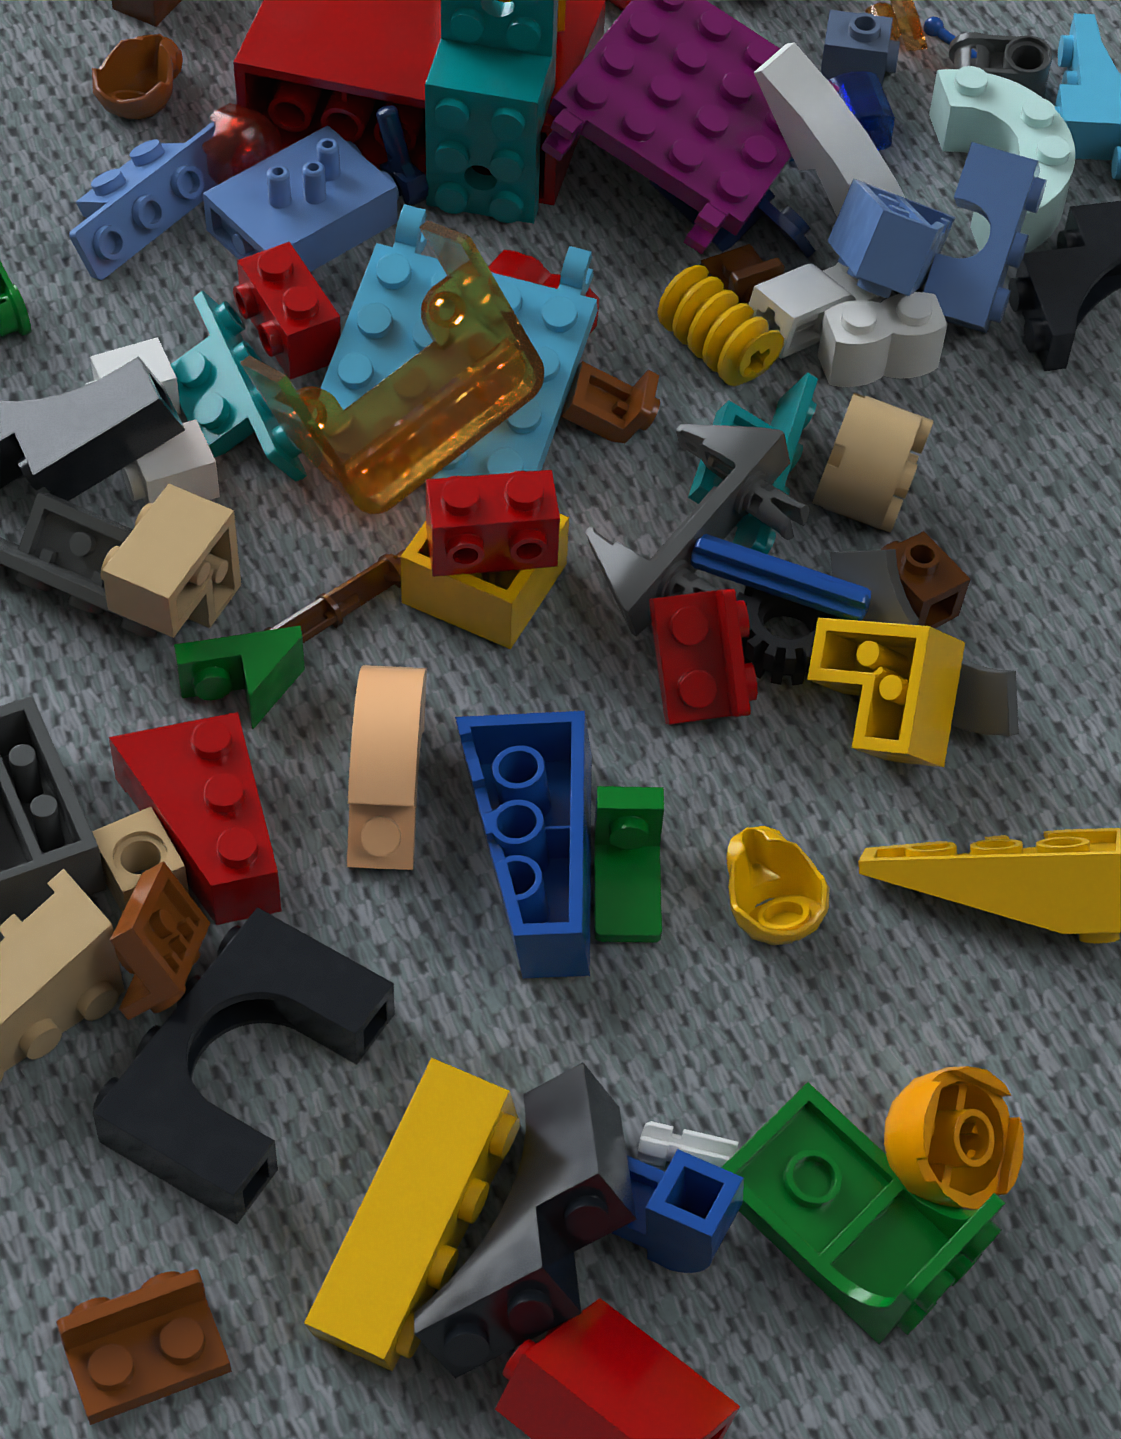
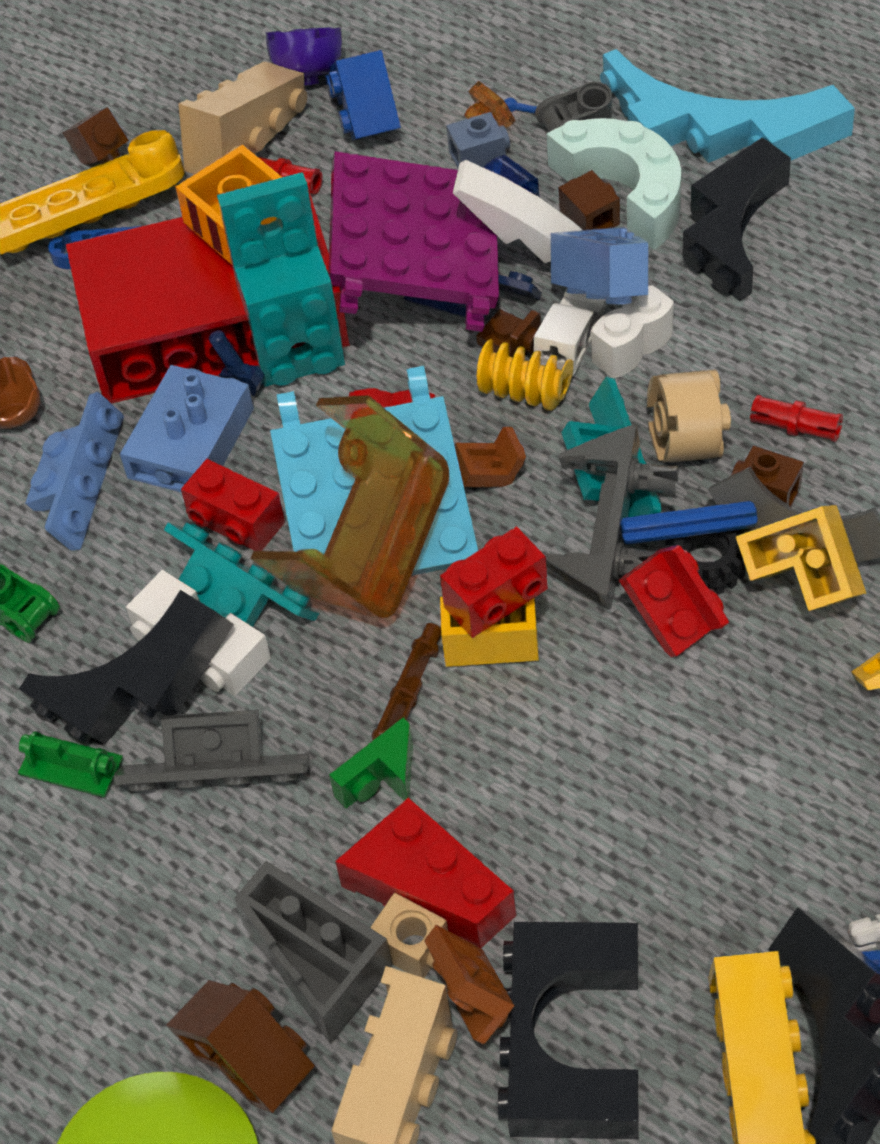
camera: 20 degrees left, 0 degrees up
(174, 563) = (291, 719): tan brick -> none
(239, 141) = (121, 407): clear red hair -> none
(385, 766) = (523, 769): light nougat arch -> none
(537, 803) = (649, 770): blue wedge -> none
(628, 864) = (718, 764): green bracket -> none
(768, 867) = (837, 723): yellow hair -> none
(934, 172) = (590, 202): none -> reddish brown brick
(1002, 191) = (656, 196): medium blue arch -> none
(1009, 531) = (796, 418): none -> red pin

